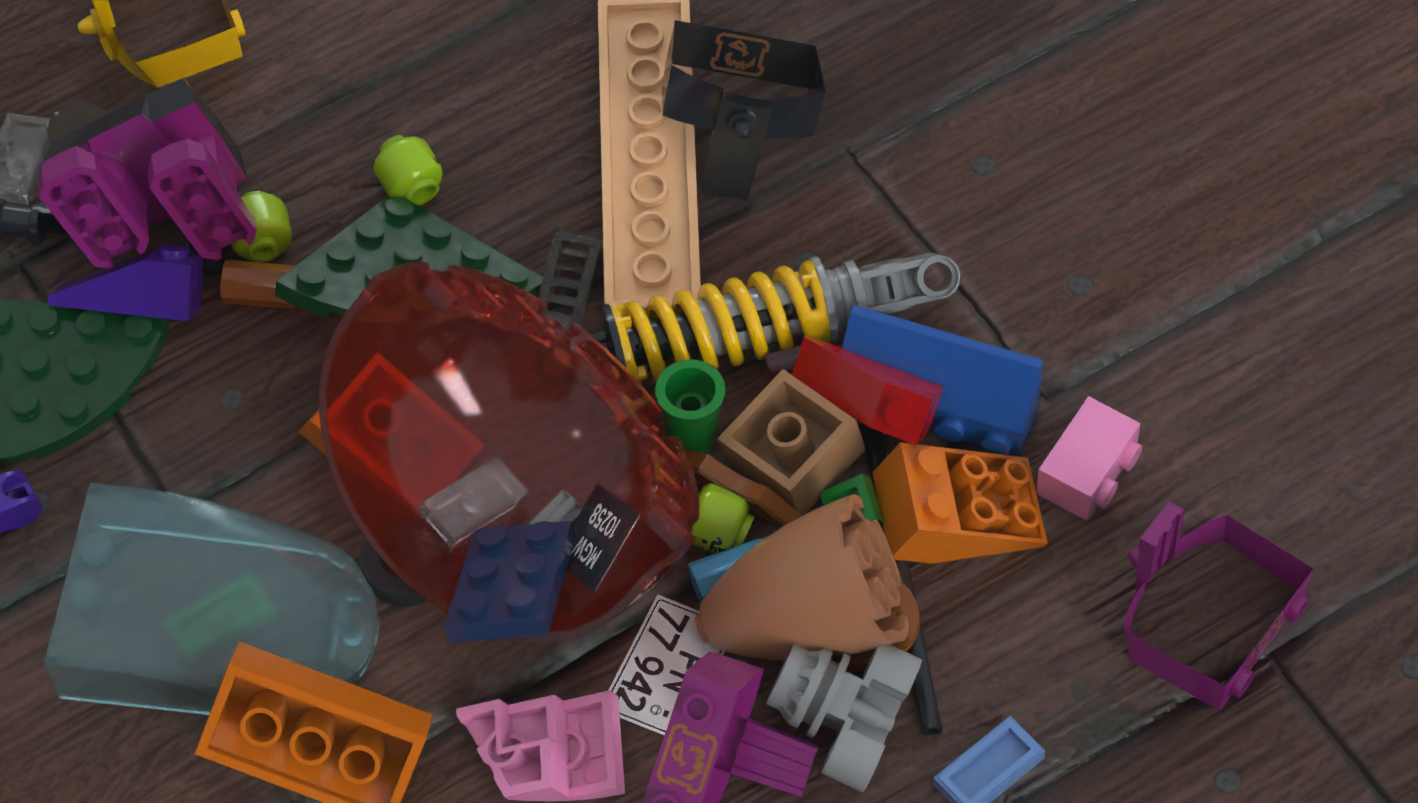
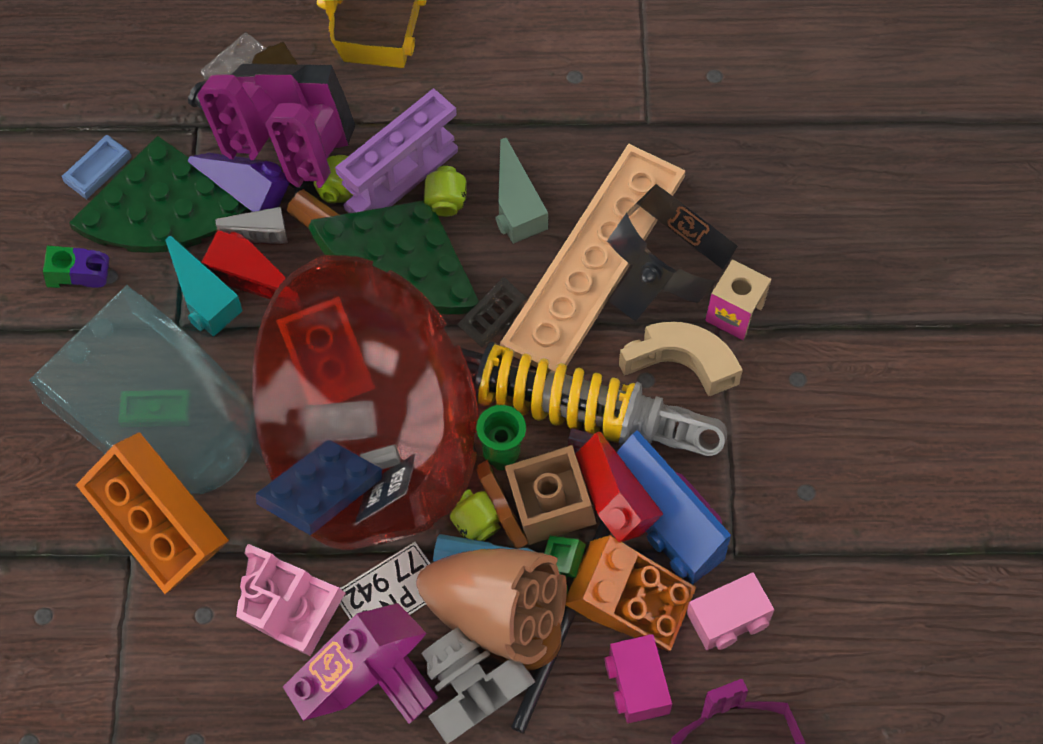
camera: 30 degrees right, 5 degrees up
(183, 450) = (207, 297): none -> teal slope
(195, 337) = (257, 226): none -> light grey slope
(218, 392) = (242, 265): none -> red slope
(330, 150) = (399, 155): none -> medium lavender fence
(508, 135) = (520, 206): none -> sand green slope
(834, 192) = (686, 345): none -> tan arch
(858, 106) = (736, 298): none -> tan piece
(1037, 590) = (639, 679): none -> dark pink brick

